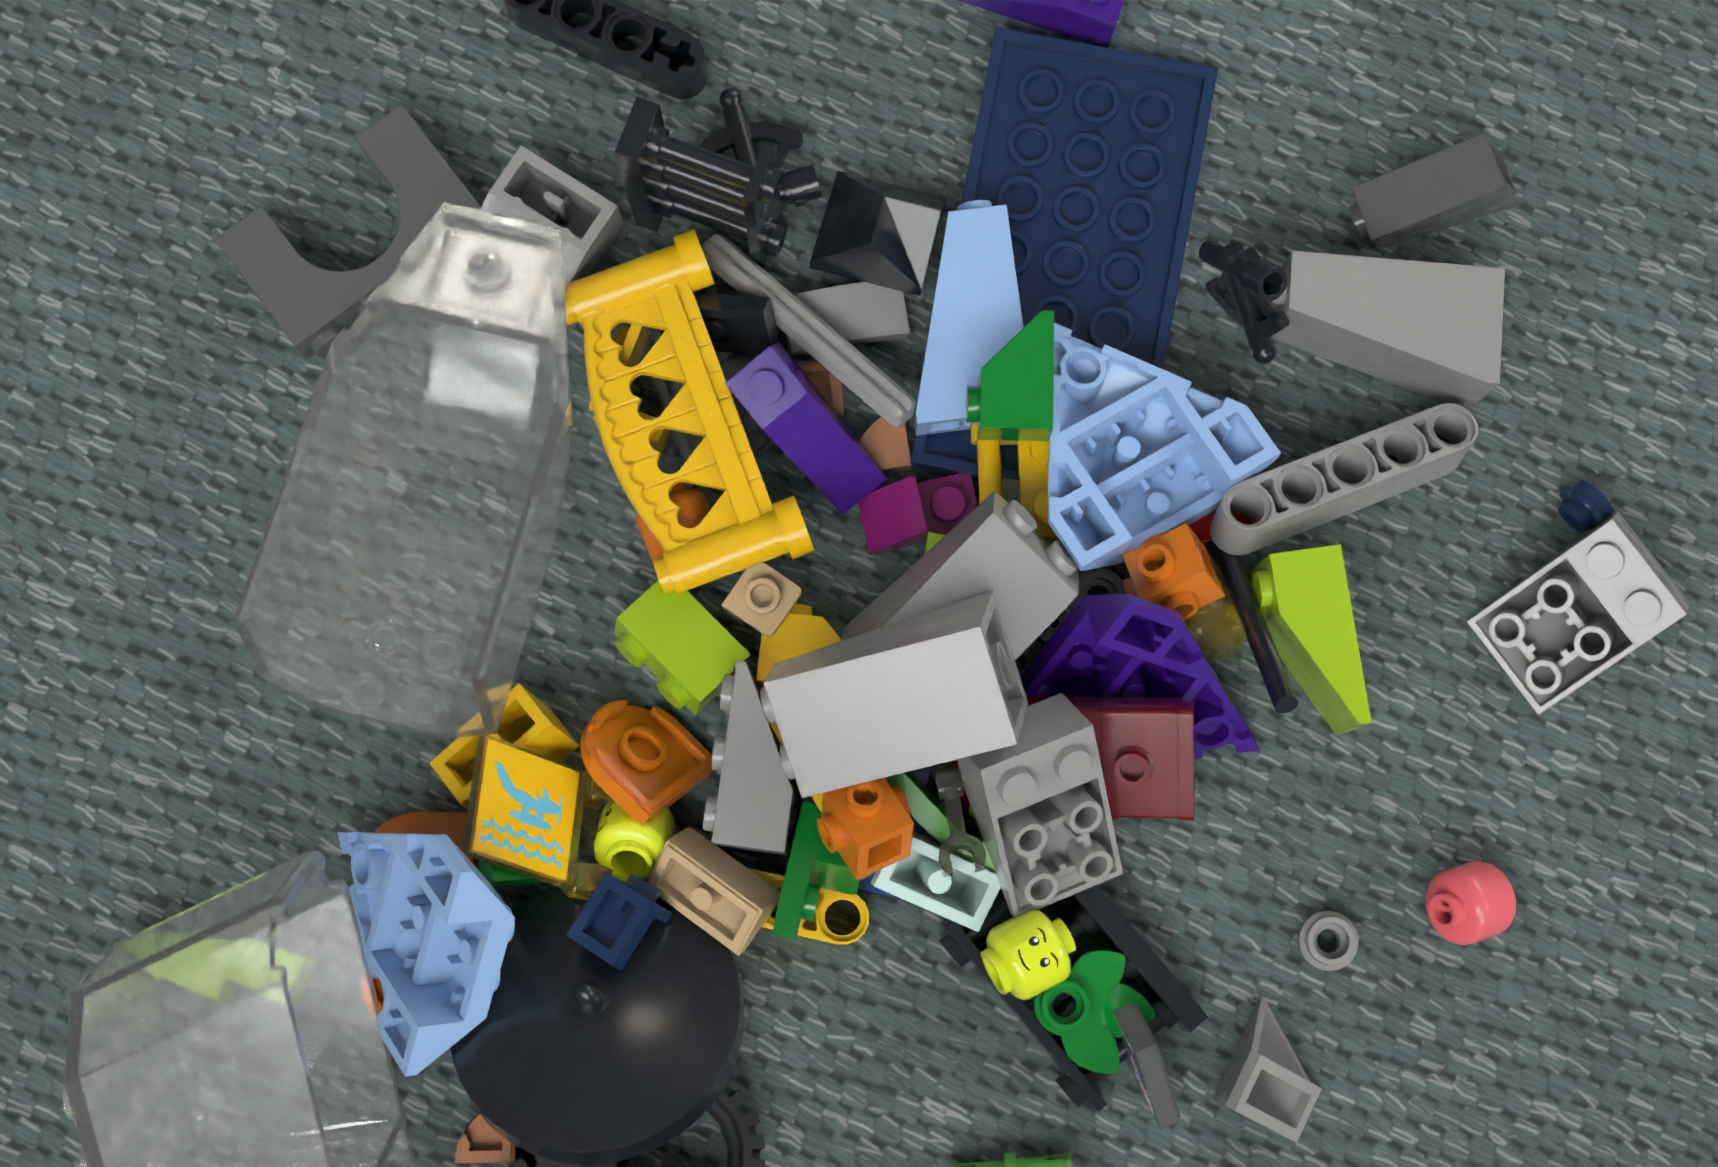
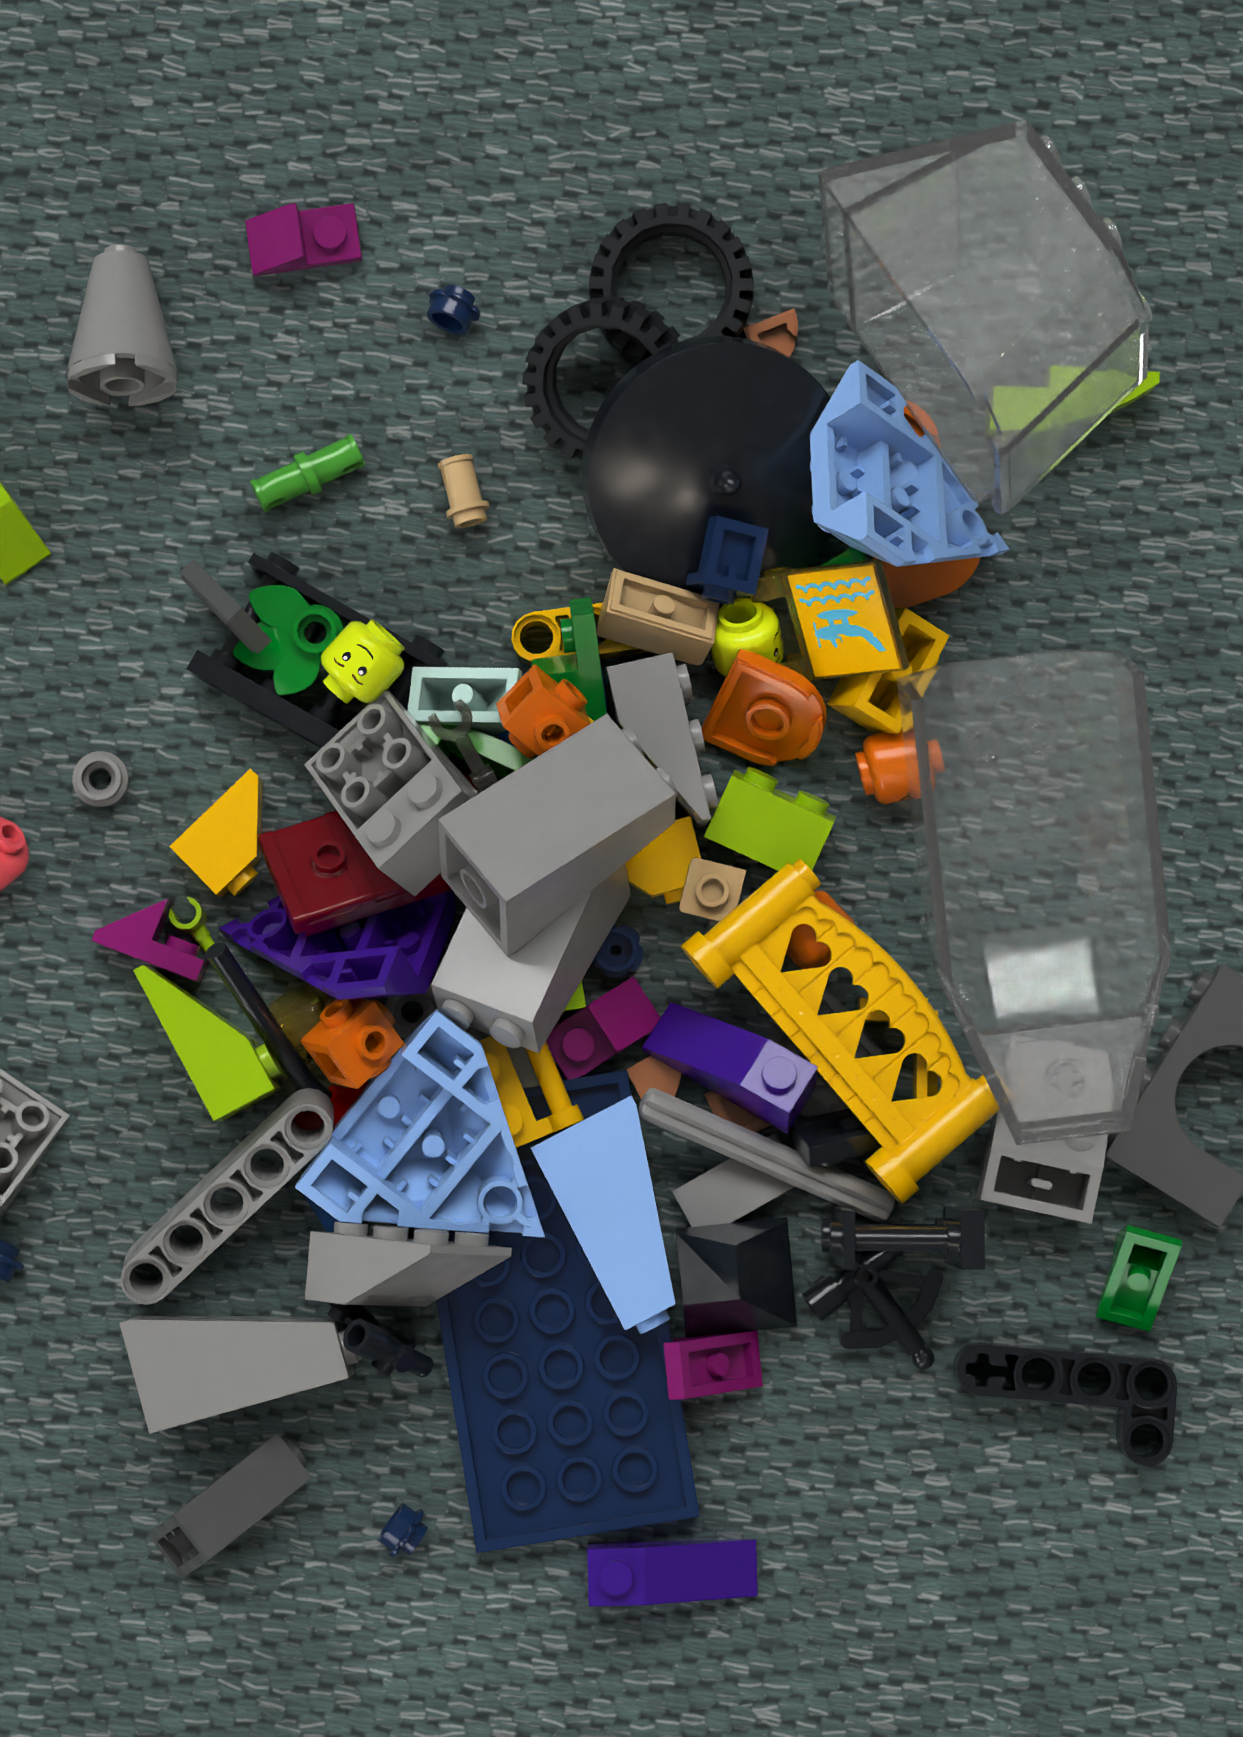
camera: 160 degrees right, 5 degrees up
(497, 93) = (1137, 1277): none -> green slope
(546, 660) = (884, 767): none -> orange head
(861, 1098) = (463, 491): none -> tan pin
(866, 572) = (630, 956): none -> dark blue plate
(933, 158) = (712, 1364): none -> magenta slope
(1017, 387) = (553, 1155): green slope -> none
(1215, 351) = (392, 1266): none -> light grey slope
(1226, 830) = (225, 838): none -> yellow slope
(1267, 1078) = (113, 638): light grey slope -> none
(1279, 117) = (403, 1530): none -> dark blue plate
(1279, 750) = (195, 928): none -> lime hand
(1345, 762) = (139, 935): none -> magenta slope

